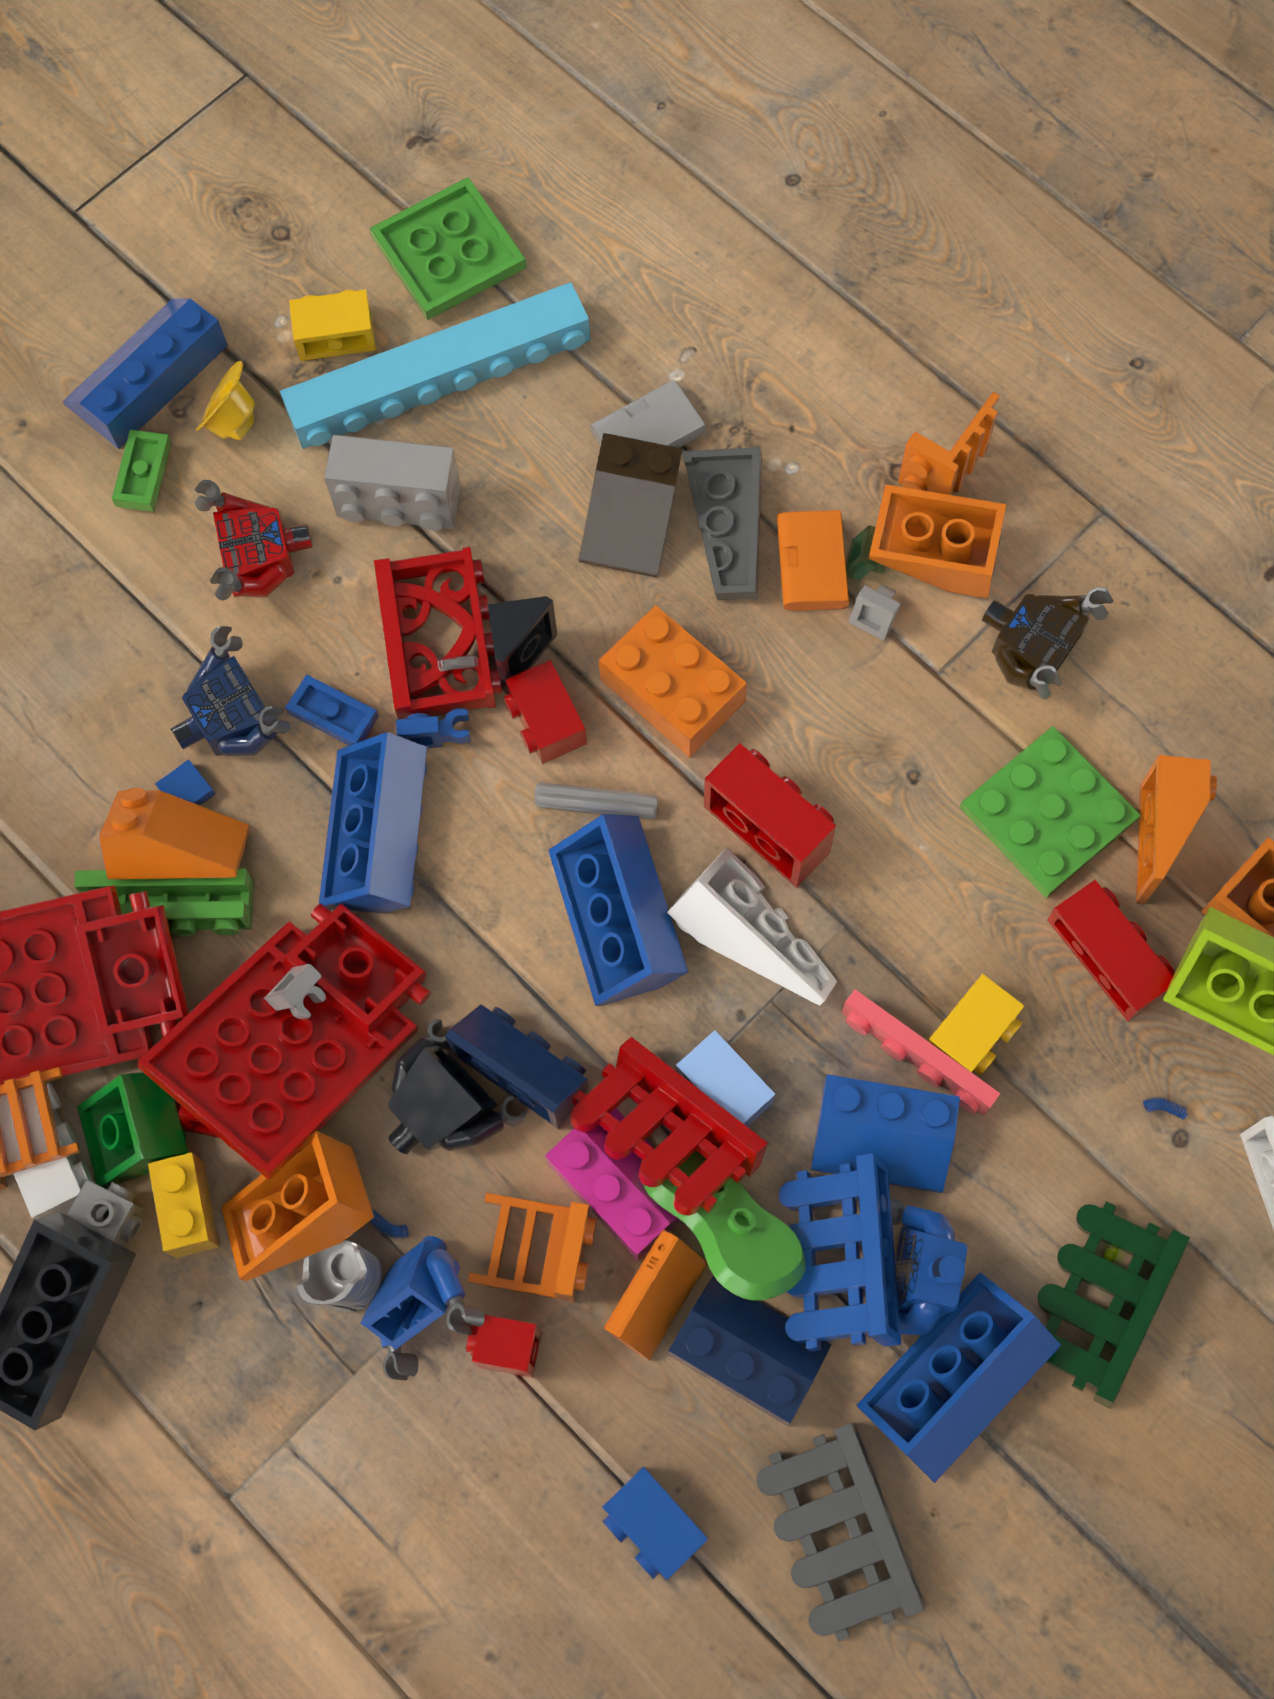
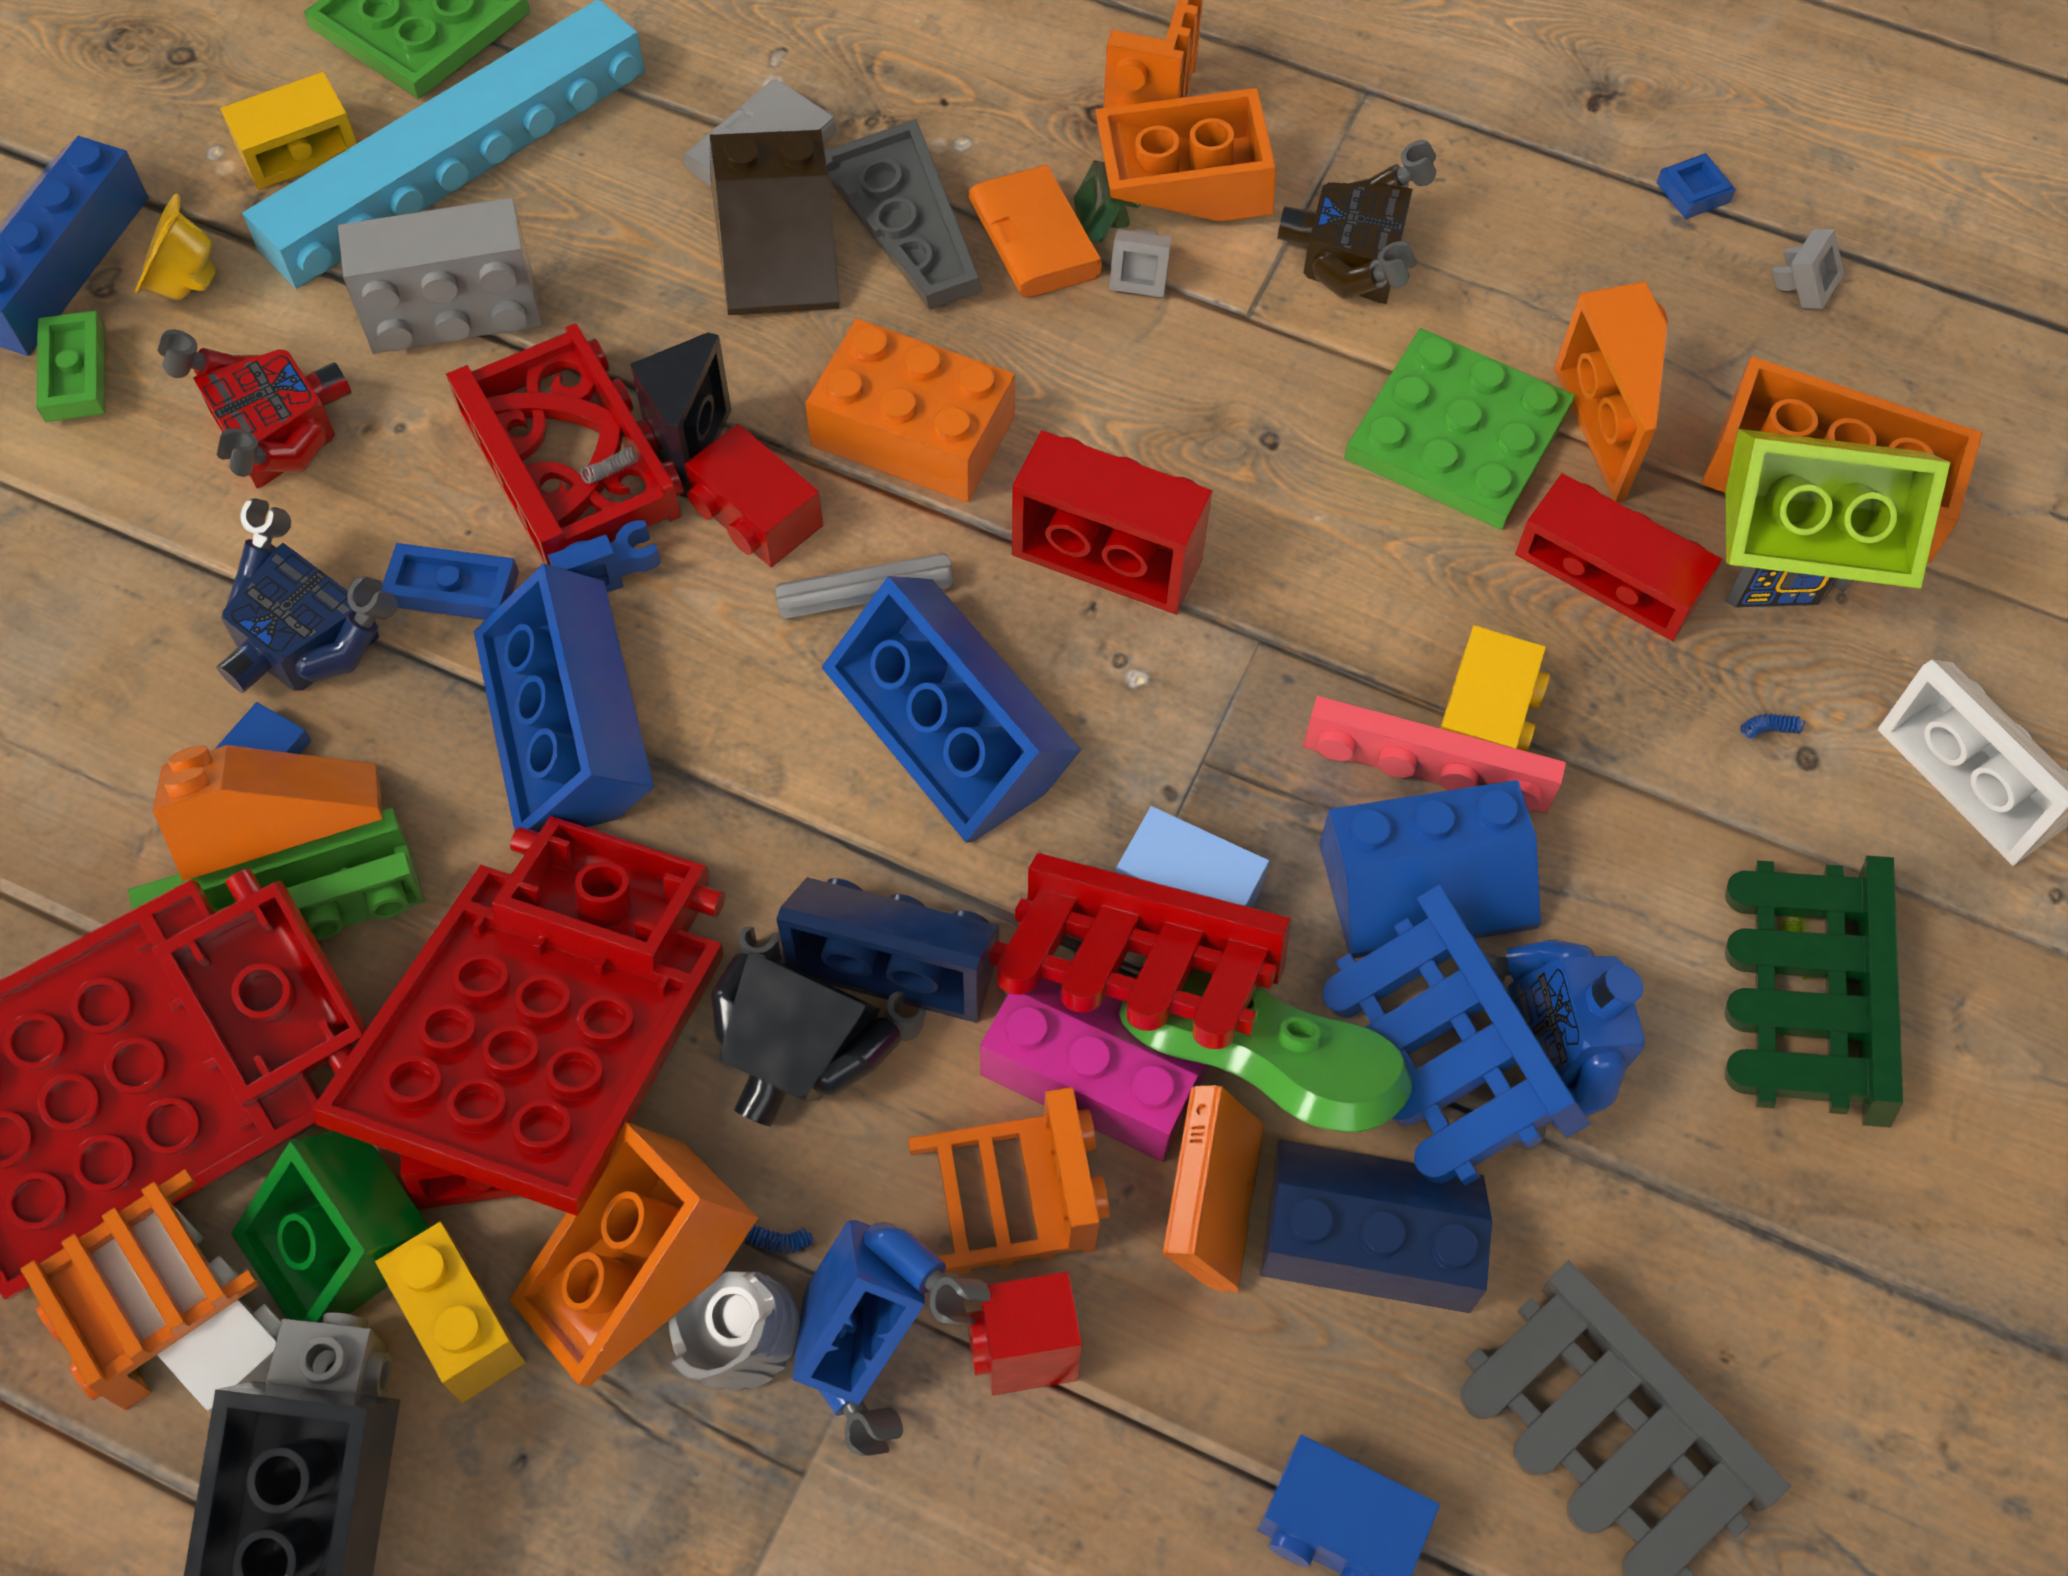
camera: 25 degrees left, 10 degrees down
(293, 988) = (524, 937): light grey tile -> none
(736, 920) = (1102, 666): white wedge -> none
(958, 1376) = (1680, 1151): blue slope -> none

